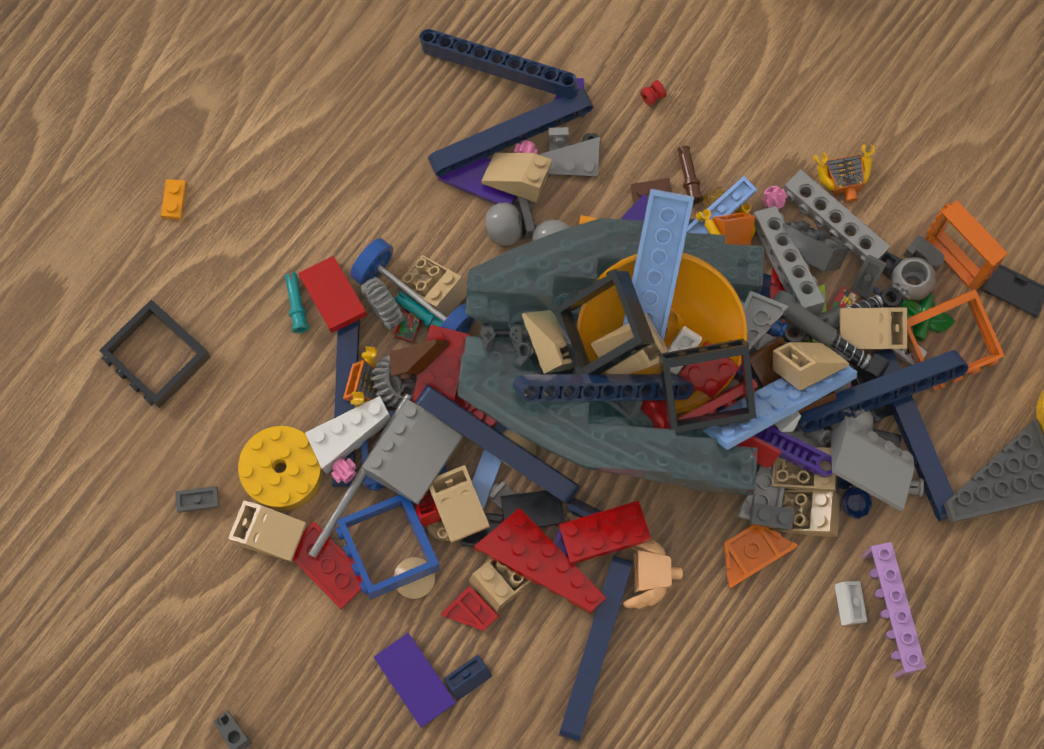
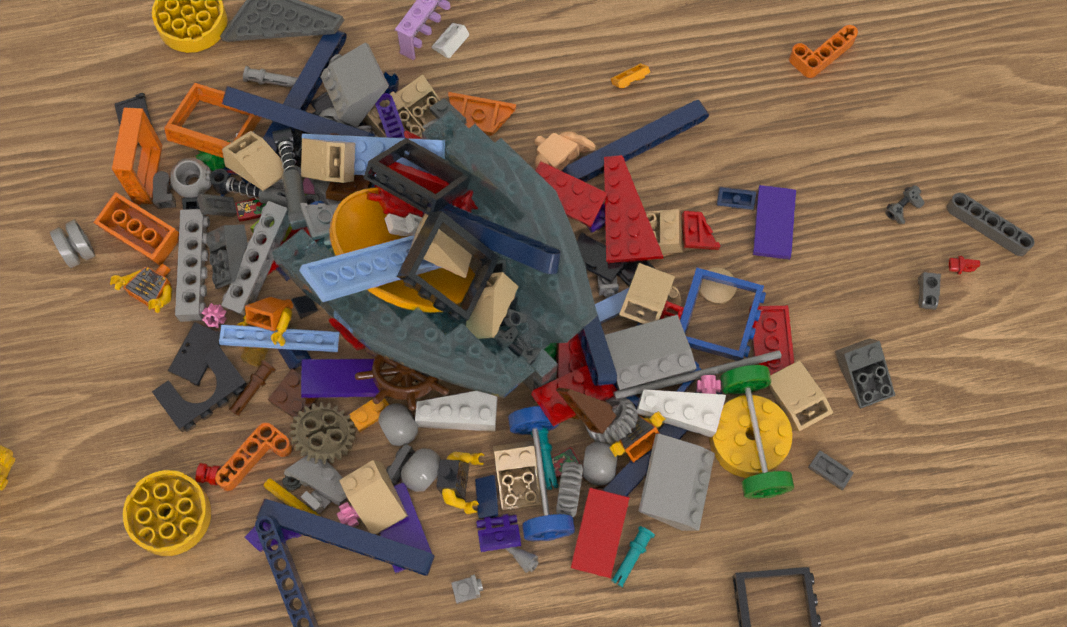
camera: 140 degrees left, 5 degrees down
(231, 608) = (866, 372): none -> dark grey slope
(234, 432) = (745, 381): none -> green axle
(305, 376) = (676, 483): none -> light grey slope
(371, 233) = (525, 559): none -> light grey cone
(377, 336) = (599, 464): none -> light grey piece
(394, 180) = (467, 589): none -> light grey bracket
(403, 229) = (498, 537): none -> dark purple plate
(440, 252) = (487, 497): none -> dark blue slope
(474, 238) = (453, 479): none -> torso
(580, 128) = (285, 496): none -> yellow axle
(586, 180) = (322, 433): none -> dark tan gear
(636, 127) = (251, 459): none -> orange beam
(650, 43) = (181, 527): none -> yellow brick
(662, 711) = (635, 73): none -> light orange plate
(714, 116) = (187, 414): none -> black arch
(756, 167) = (190, 363): none -> black door
(903, 205) = (137, 229): none -> orange brick
(936, 149) = (70, 245): none -> light grey wheel
(962, 417) = (262, 77): none -> light grey pin

